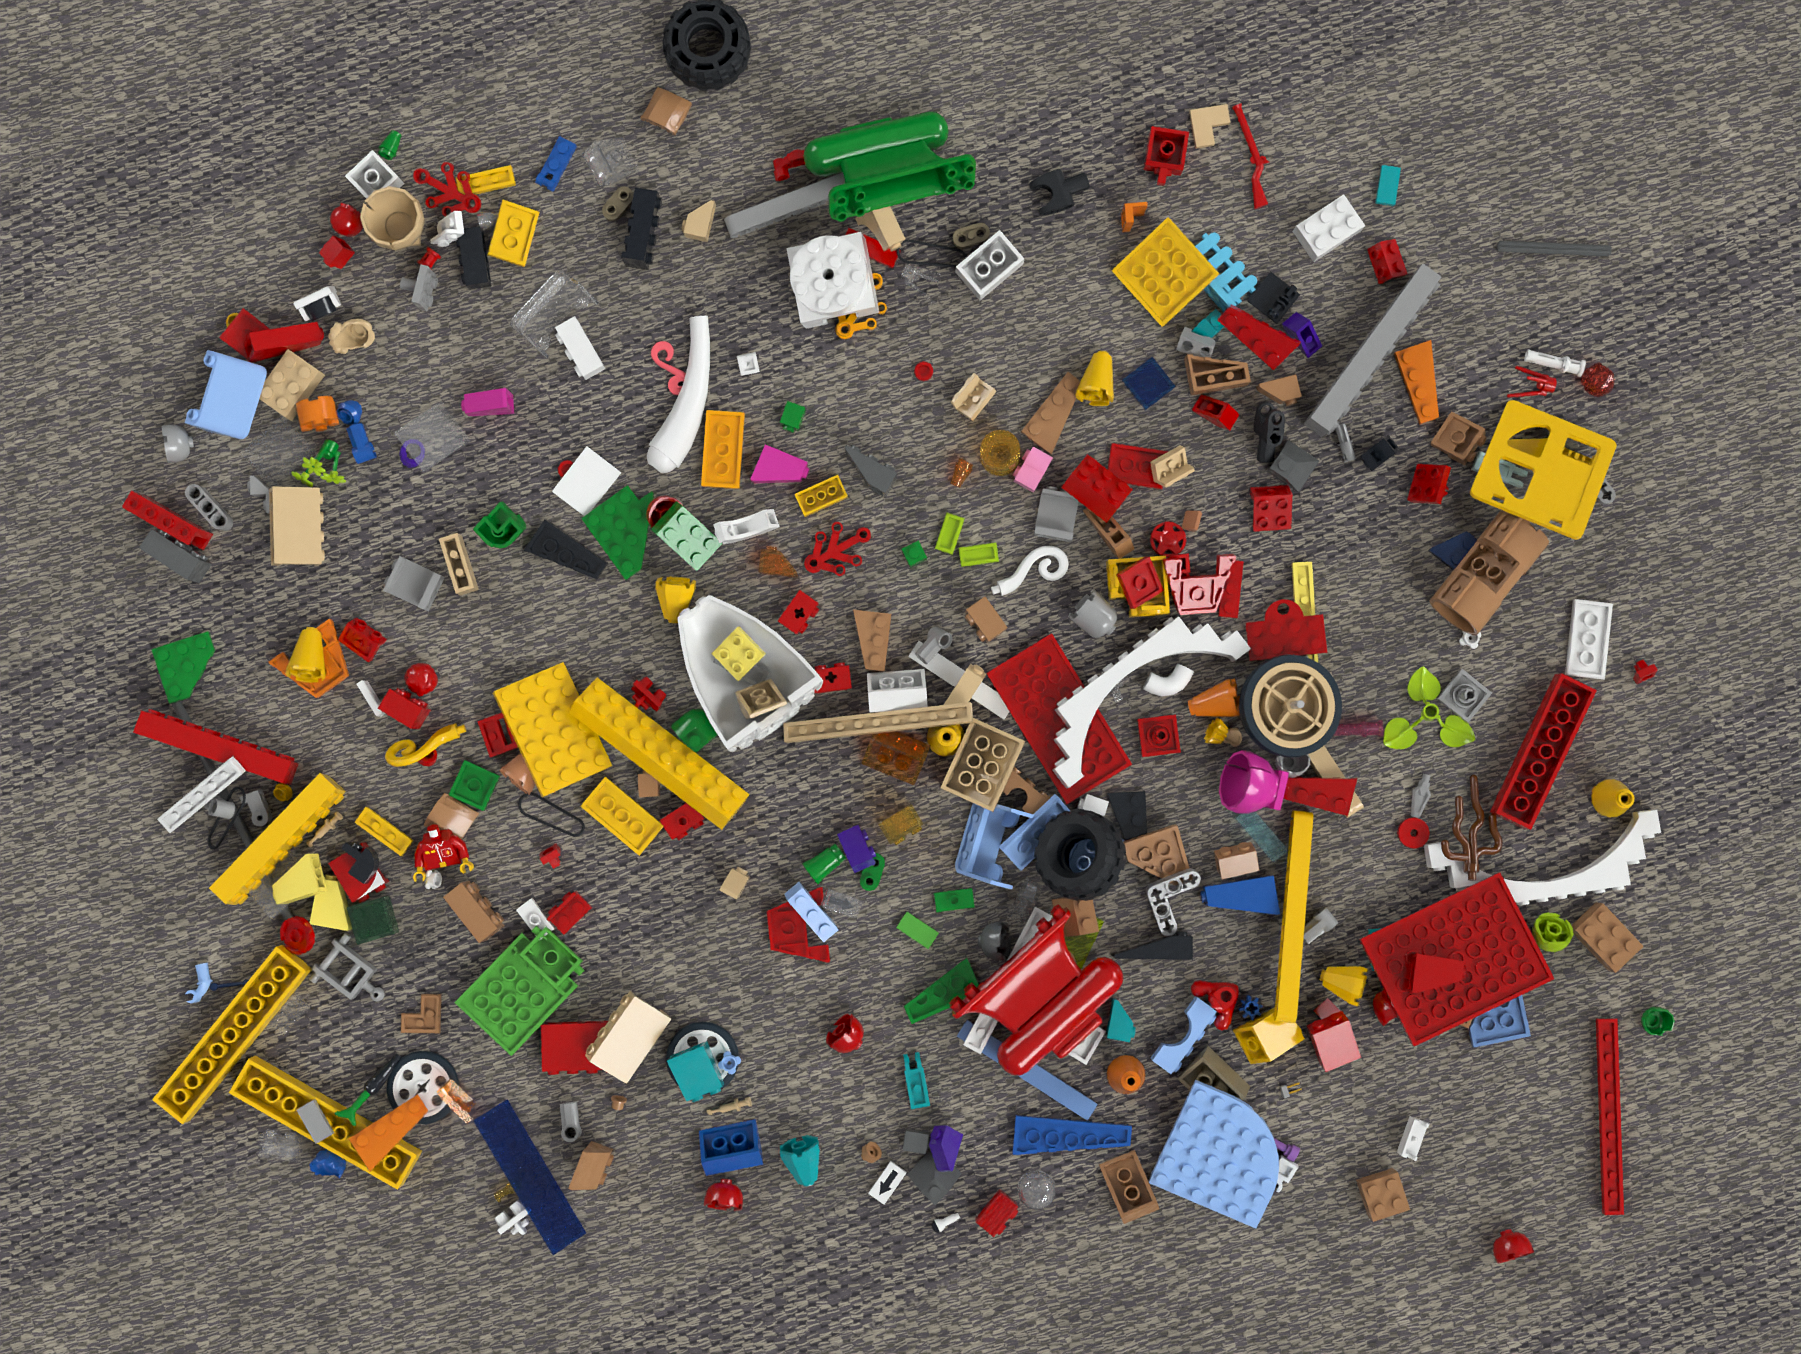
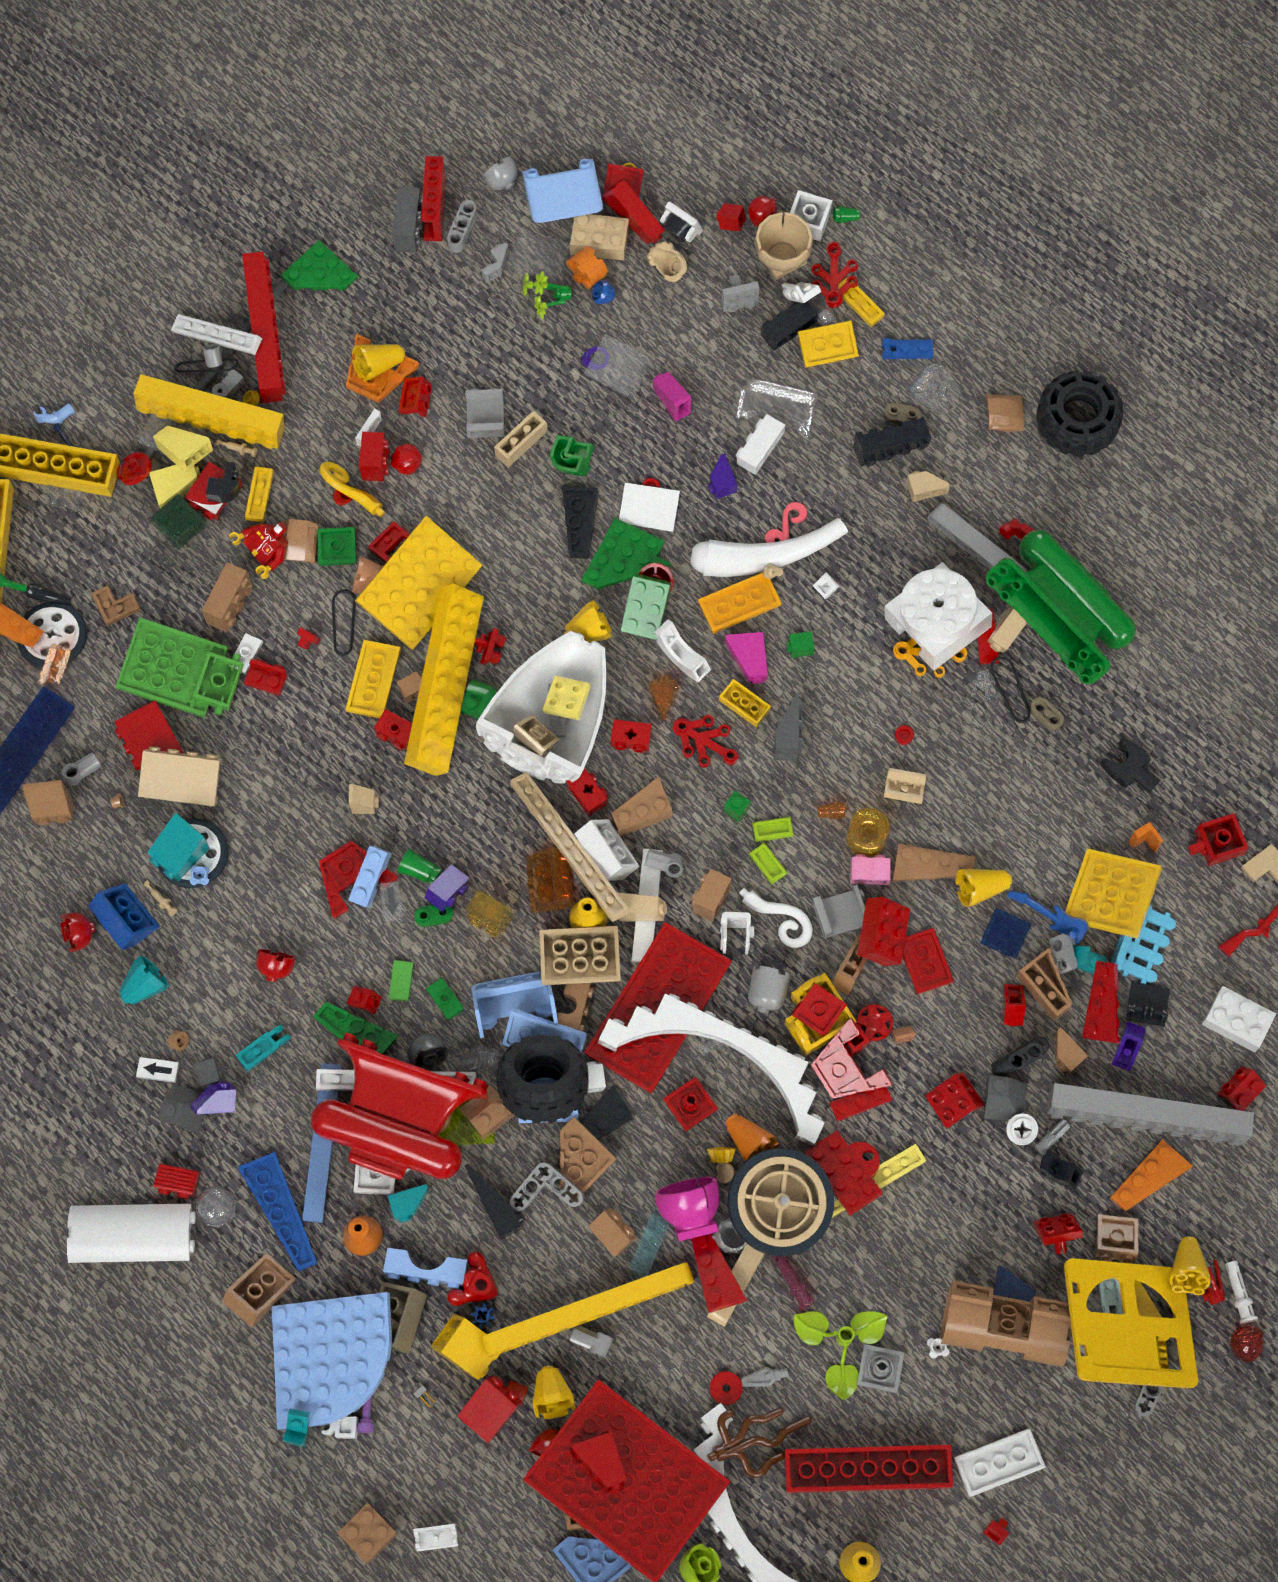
camera: 60 degrees right, 15 degrees down
(296, 526) = (483, 297): tan panel -> none
(360, 962) = (118, 541): light grey piece -> none
(362, 448) = (578, 318): blue piece -> none
(429, 258) = (767, 290): red bush -> none
(433, 879) = (237, 552): white plate -> none
(596, 401) = (722, 479): none -> dark purple slope
(708, 404) = (771, 571): none -> tan arm
(918, 971) = (364, 999): none -> red bracket
(939, 1224) = (141, 1135): white piece -> none
(989, 265) = (1029, 740): white brick -> none
(1016, 612) = (744, 921): none -> white piece
(1023, 1275) = (130, 1233): none -> white cylinder
(1168, 685) = (742, 1090): white cylinder -> none
(1171, 467) = (940, 988): tan bracket -> none
(1172, 326) = (1064, 923): none -> blue piece
(1248, 894) = (586, 1259): blue slope -> none
(1268, 1214) = (296, 1428): none -> teal slope
(1333, 464) = (1028, 1135): none -> white gear
(1516, 392) = (1189, 1268): none -> yellow cone

